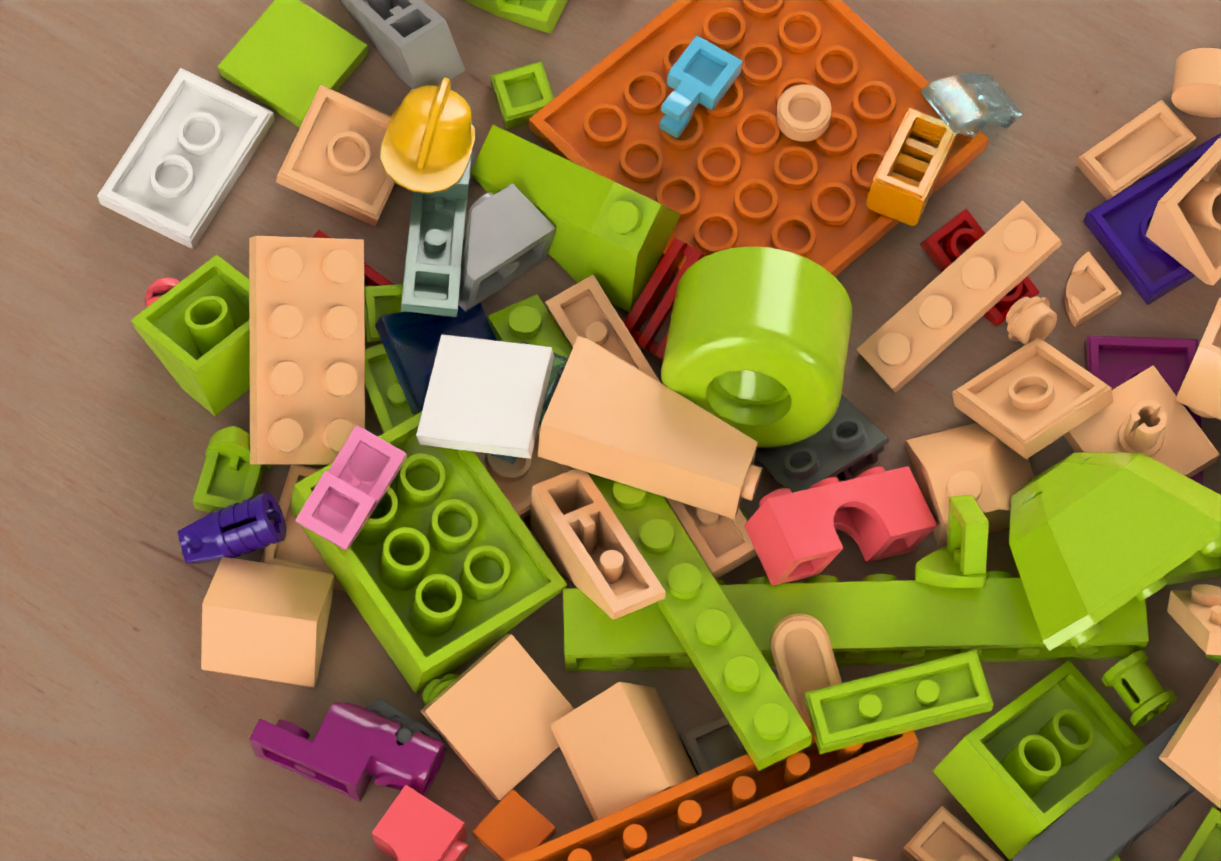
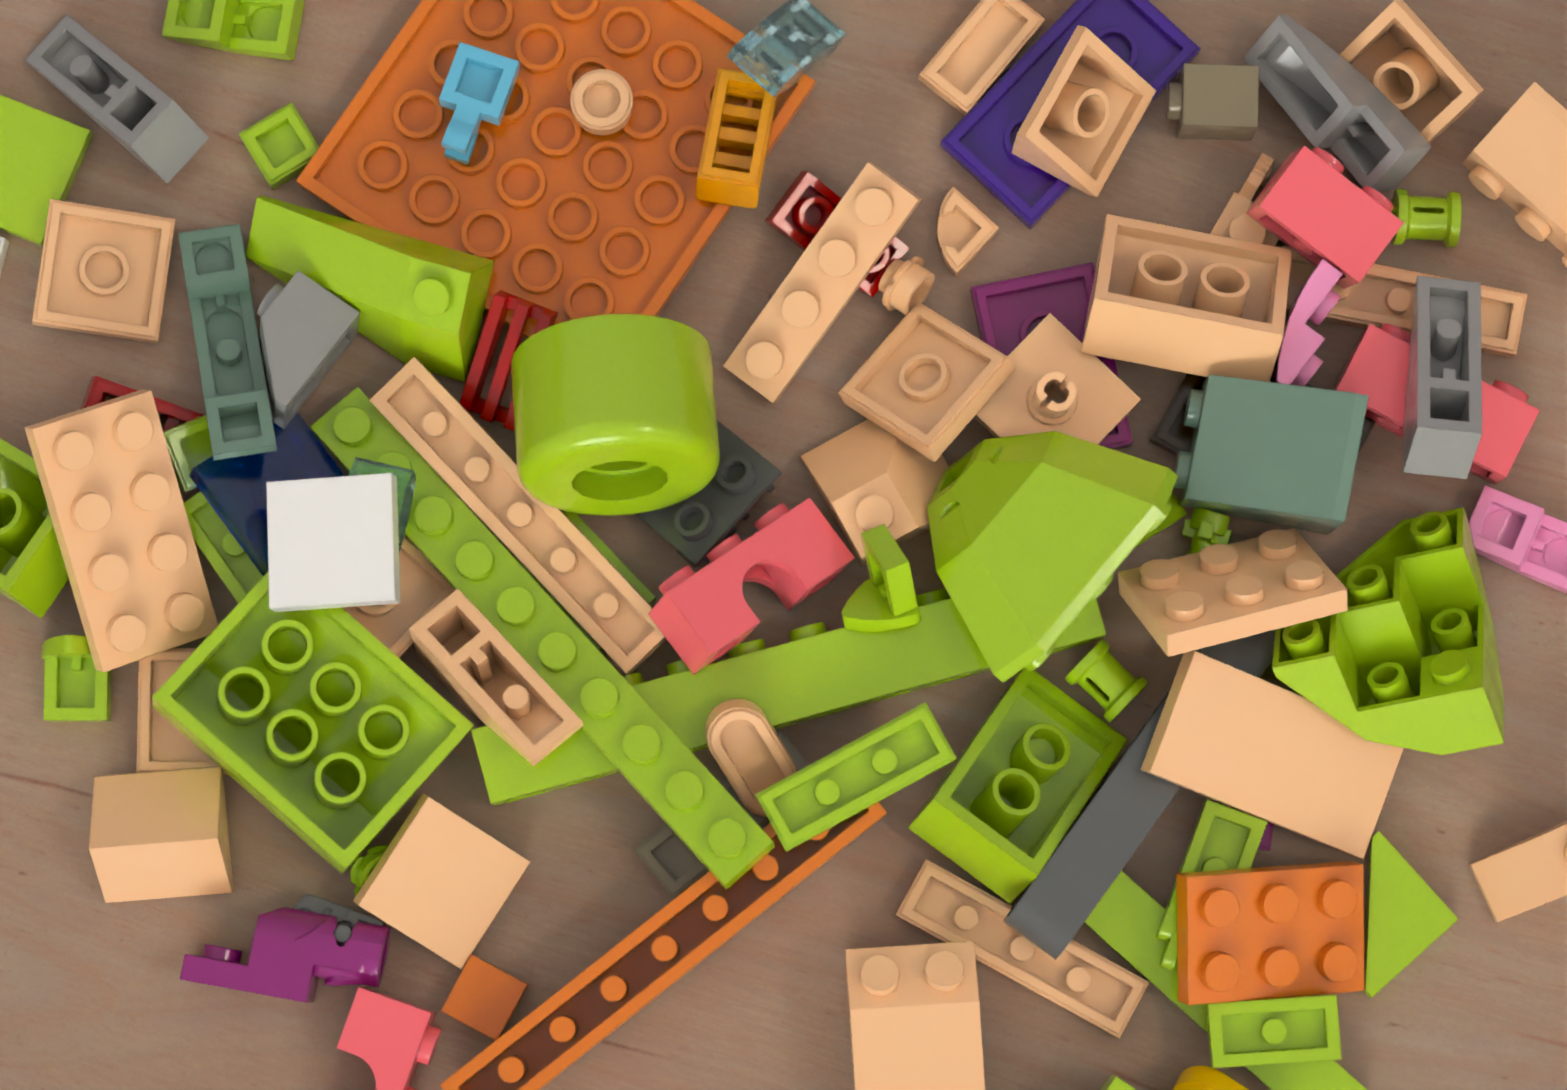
camera: 15 degrees left, 15 degrees up
(234, 530) = (88, 754): dark purple hinge -> none
(351, 488) = (215, 688): bright pink slope -> none
(428, 139) = (190, 237): yellow piece -> none
(622, 748) = (582, 889): light nougat slope -> none
(645, 434) = (515, 544): light nougat slope -> none

